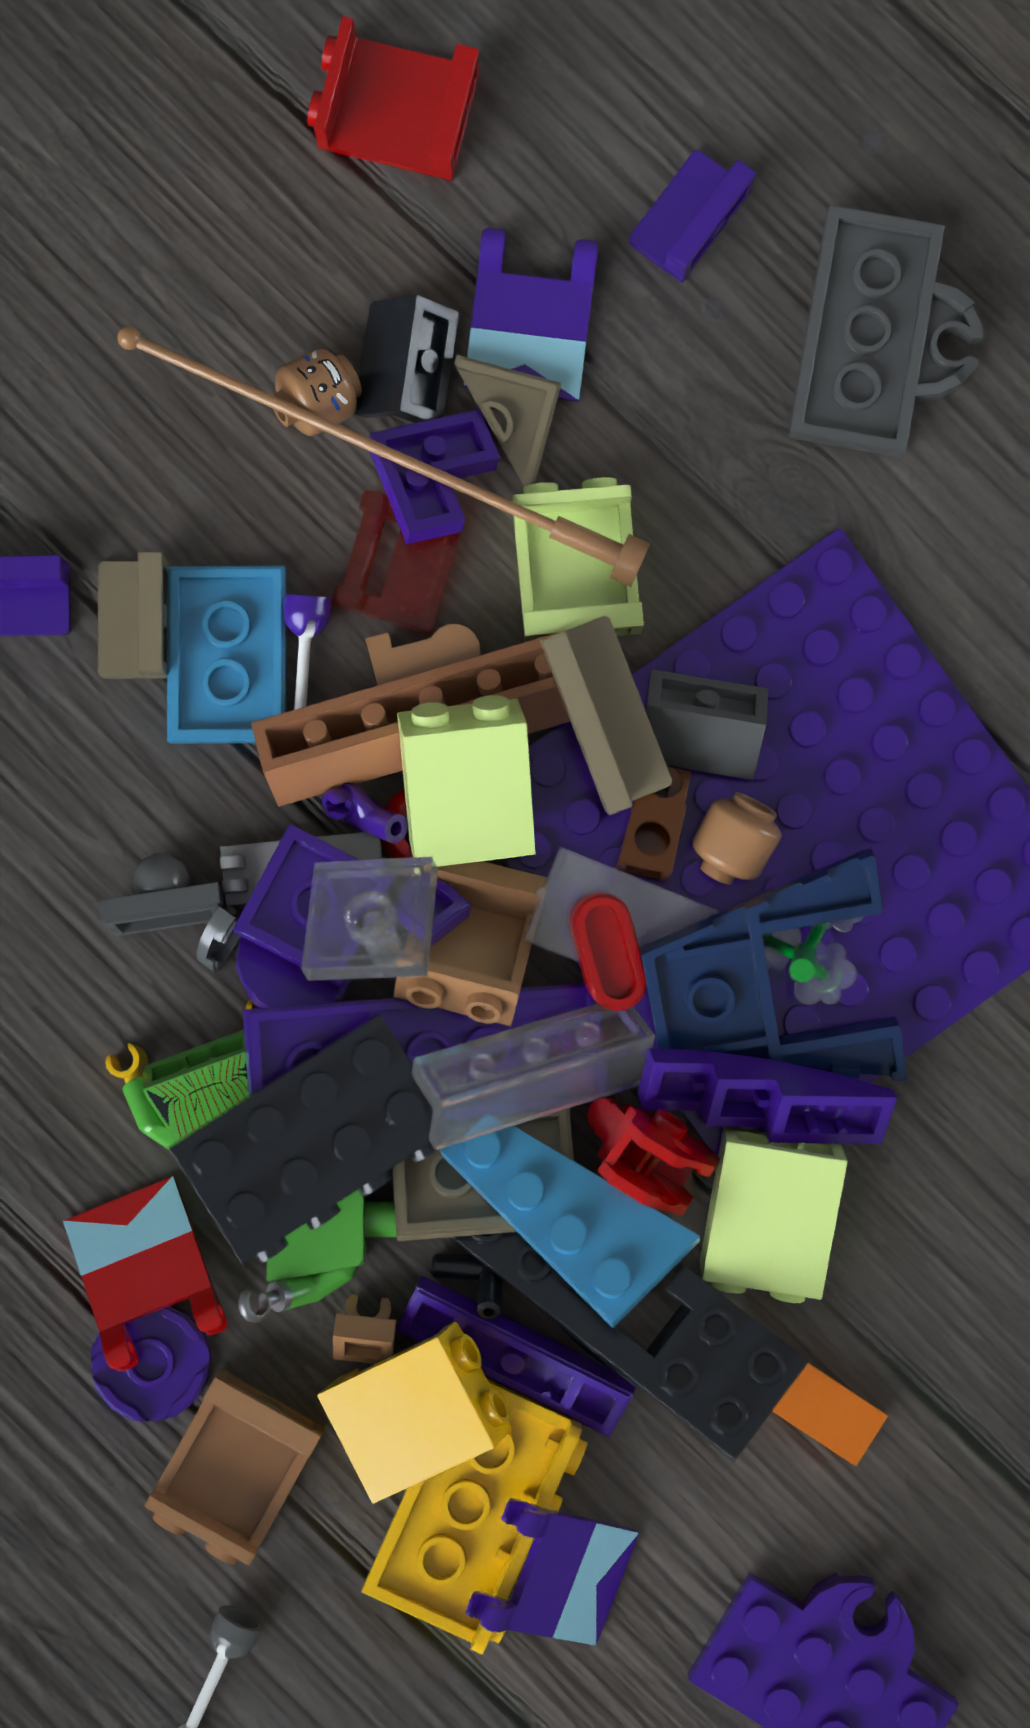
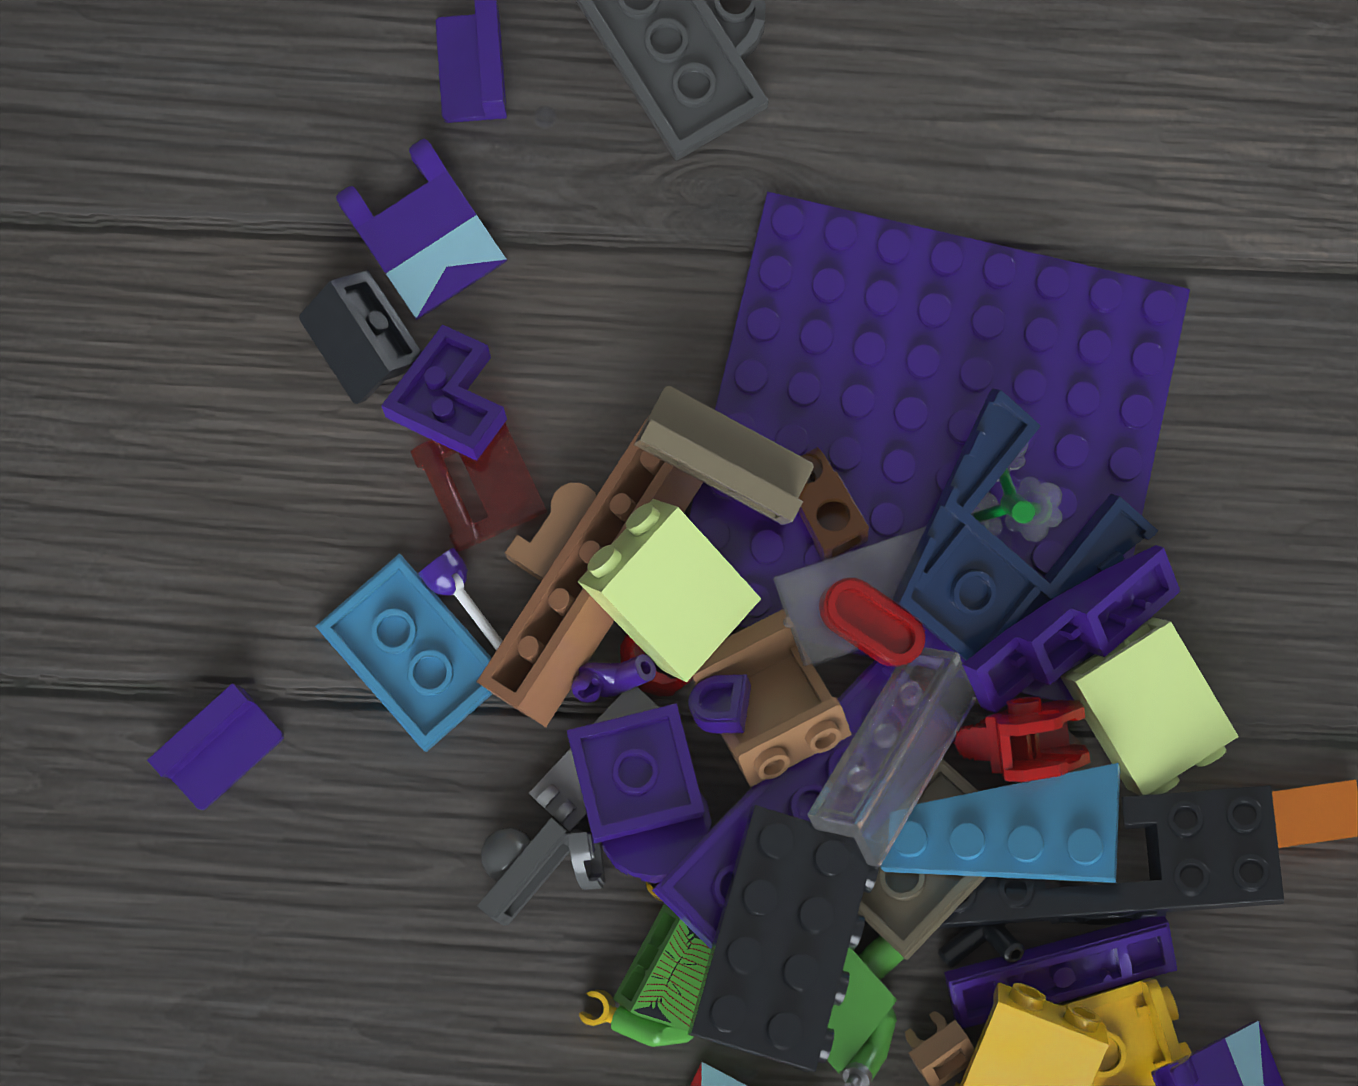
camera: 40 degrees left, 5 degrees down
(133, 617) = (322, 684): dark tan panel -> none
(319, 385) = (315, 411): medium nougat head -> none
(370, 919) = (687, 744): clear tile -> none
(393, 103) = (194, 164): red panel -> none
(515, 408) = (468, 303): dark tan tile -> none
(565, 585) = (602, 370): yellowish green panel -> none
(624, 557) = (639, 338): medium nougat piece -> none
(707, 723) = (799, 402): dark grey panel -> none
(736, 838) = (890, 465): medium nougat head -> none

